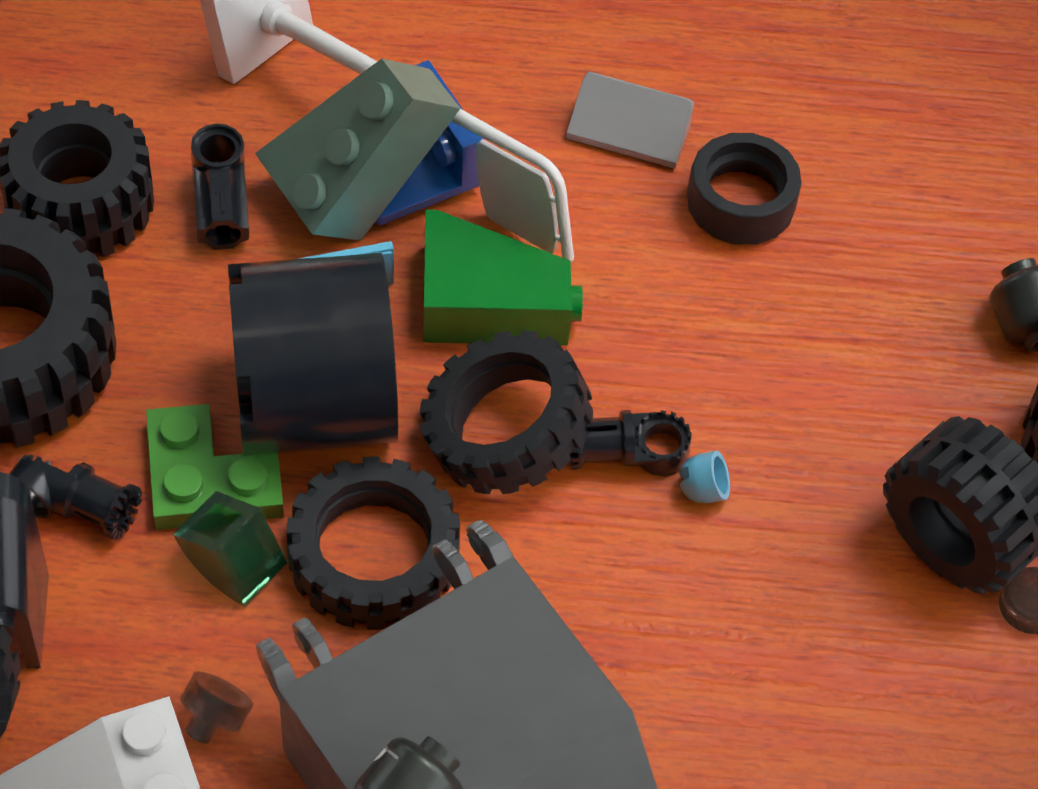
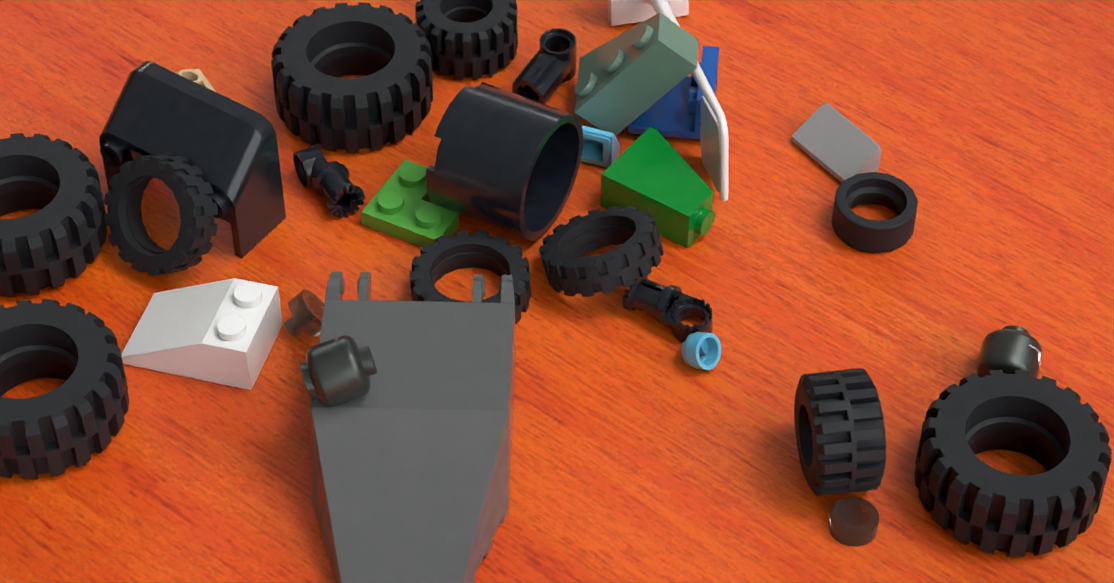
camera: 40 degrees right, 10 degrees down
(231, 546) = (387, 246): clear green brick -> none

